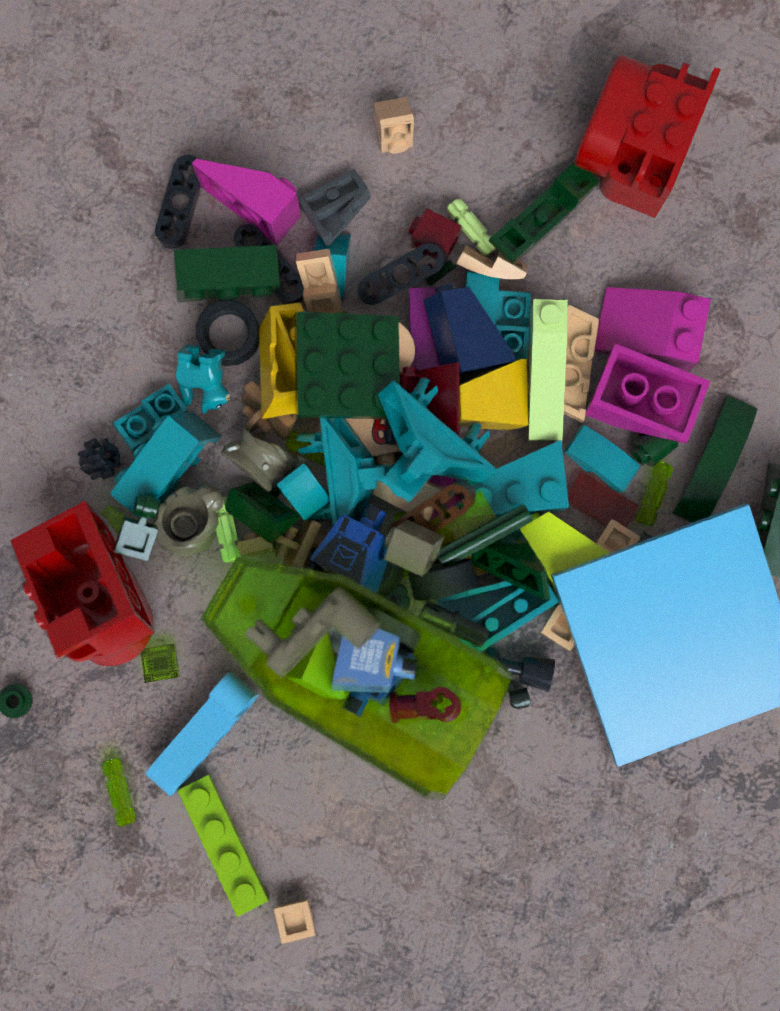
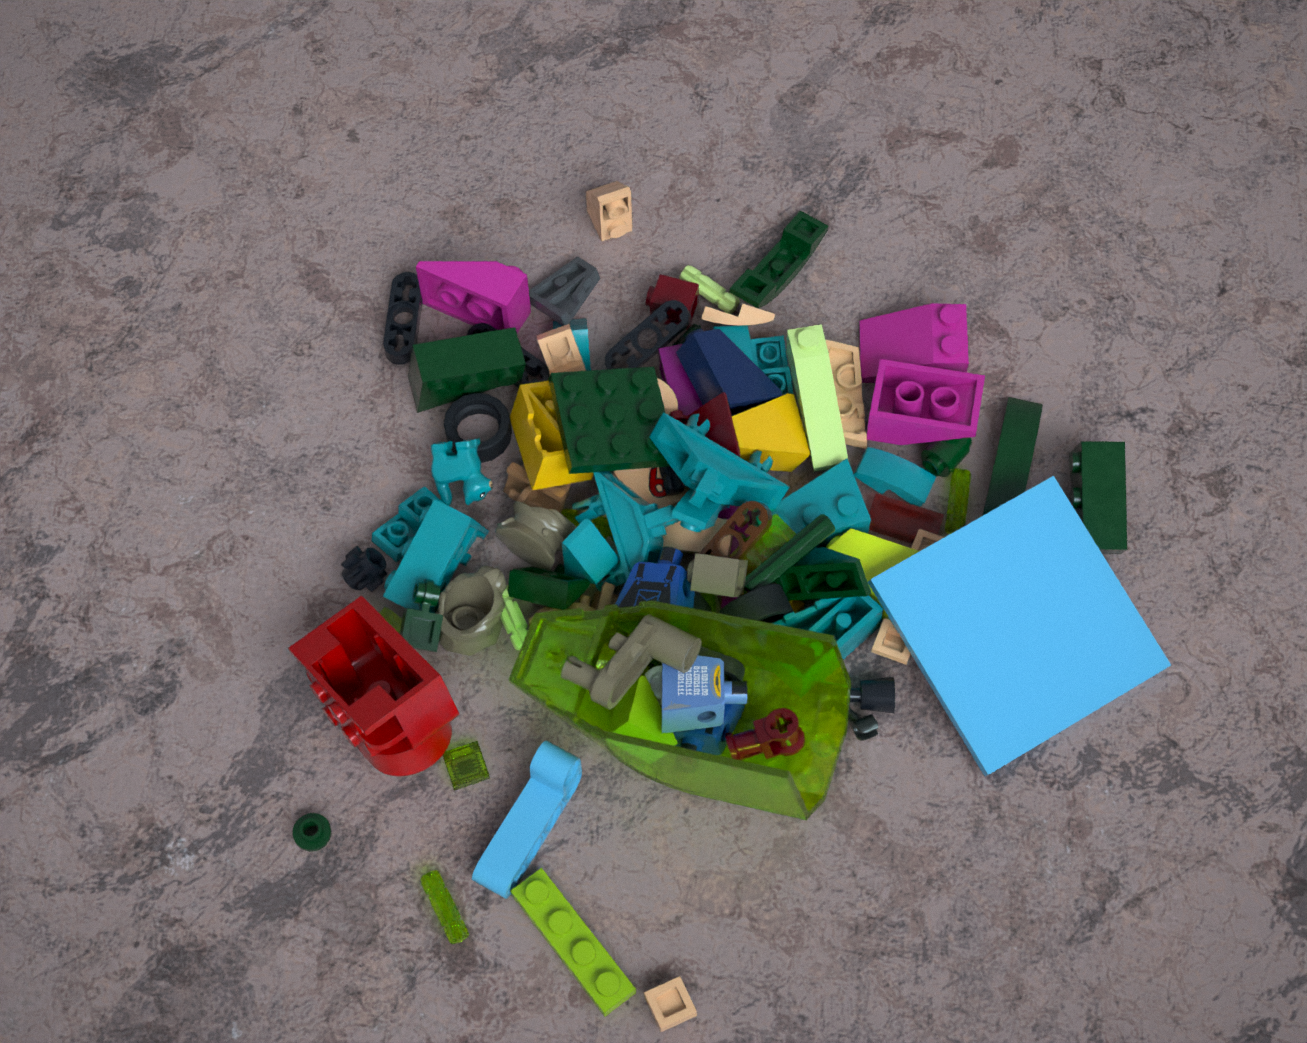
camera: 10 degrees left, 20 degrees down
(643, 131) = (858, 172): red brick -> none

